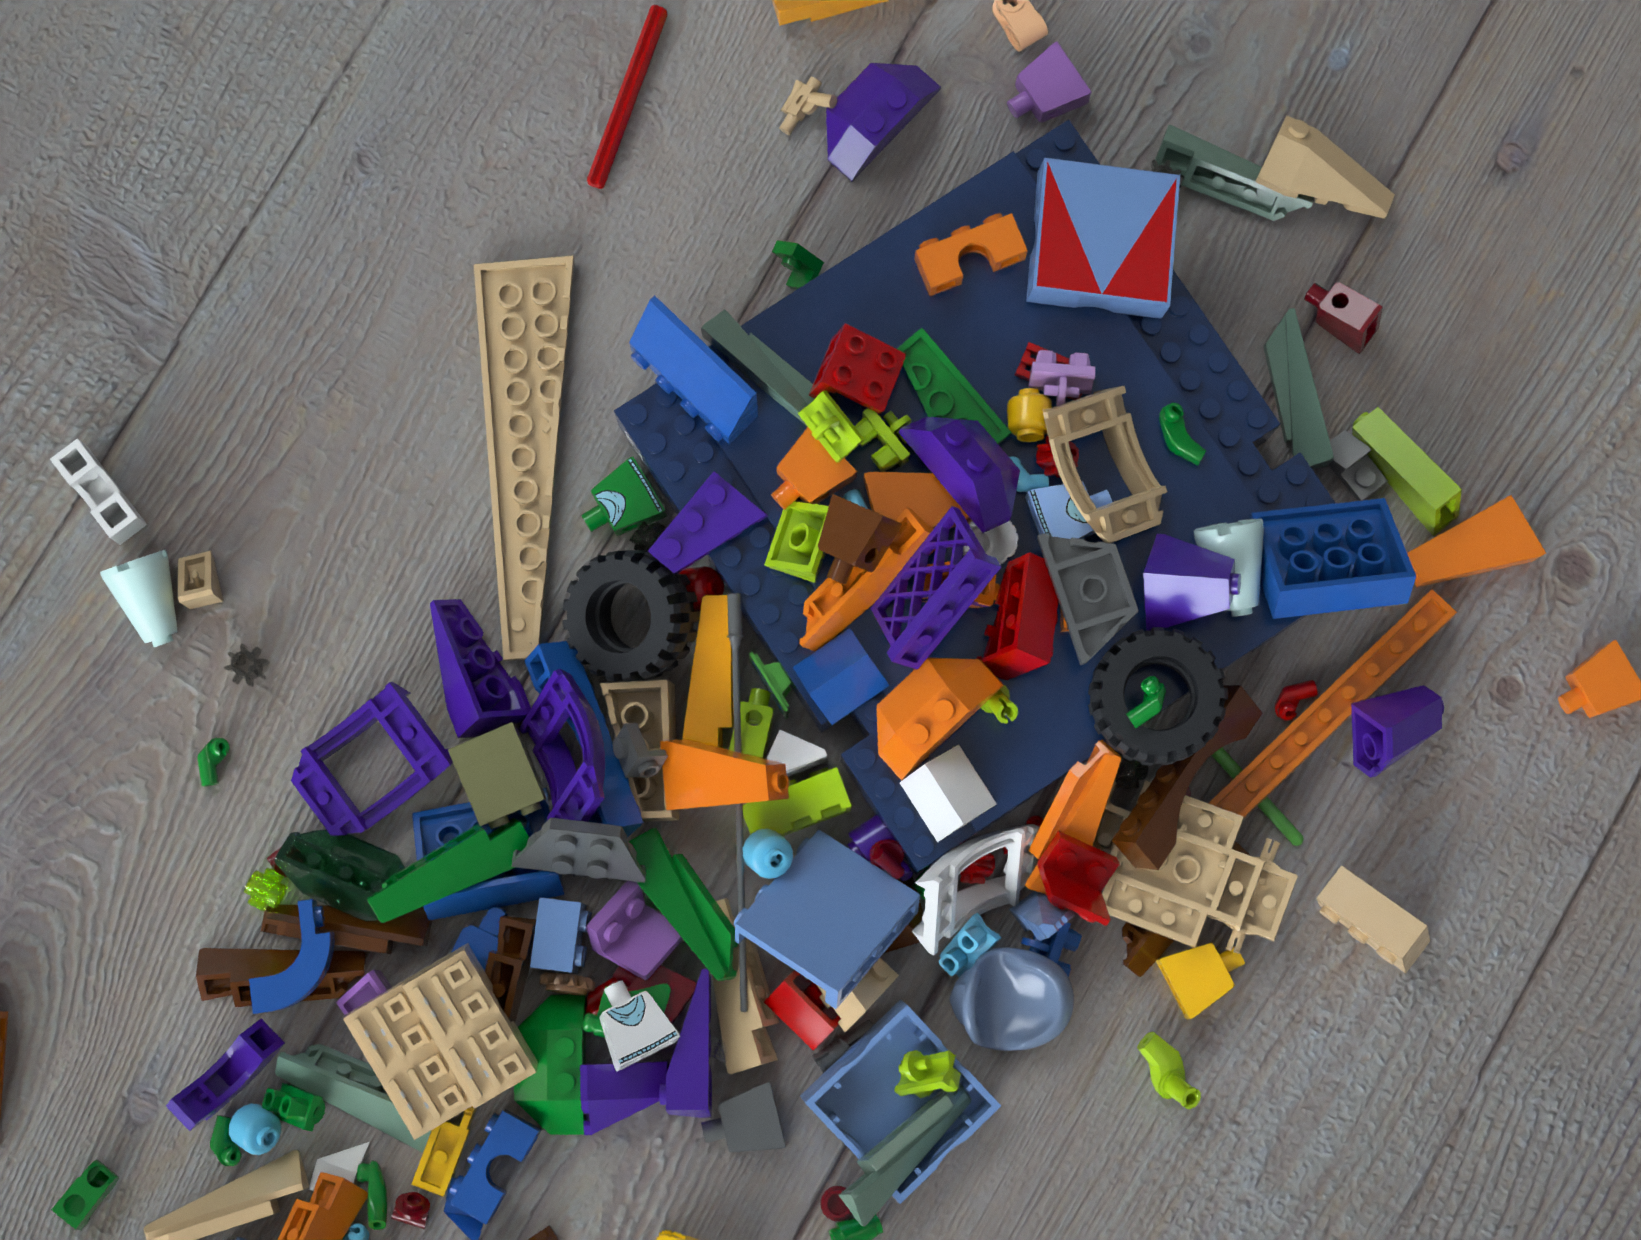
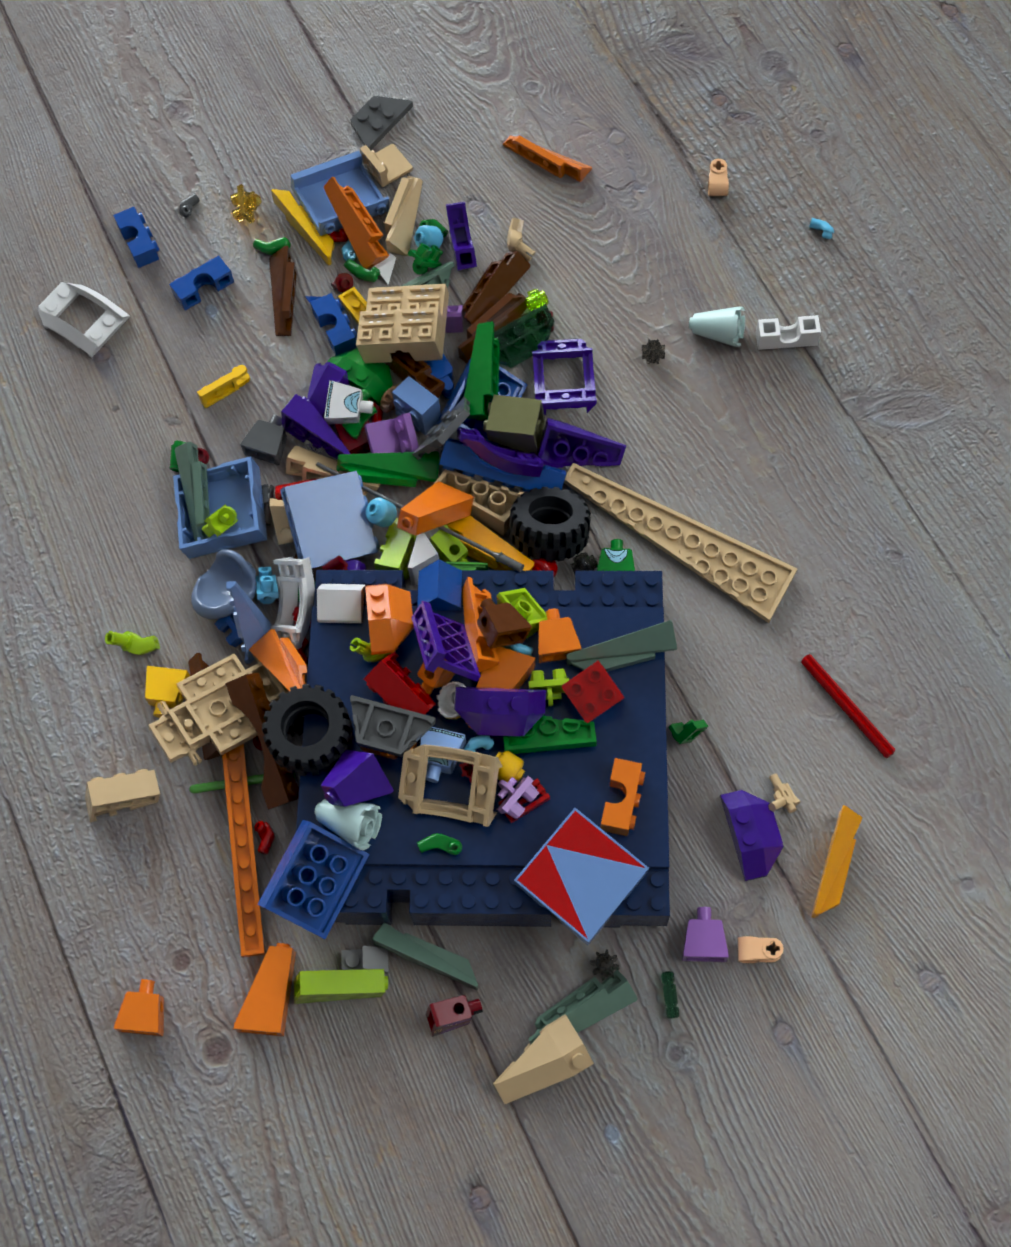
camera: 130 degrees right, 15 degrees down
(85, 1195) = (452, 161): green leg -> none
(172, 996) = (515, 240): none -> tan arm
(198, 581) = (711, 353): tan slope -> none
(210, 758) = (618, 313): green arm -> none
(306, 972) = (487, 297): blue arch -> none
(634, 755) = (480, 478): dark grey bracket -> none
(693, 373) = (650, 609): blue slope -> none
(705, 522) = (567, 574): dark purple wing -> none
(831, 426) = (571, 653): lime hips -> none
(1076, 876) = (252, 643): red bracket -> none
(1140, 88) = (670, 995): none -> clear green axle
(1151, 703) = (302, 712): green arm -> none
(1393, 726) = (207, 875): dark purple slope -> none

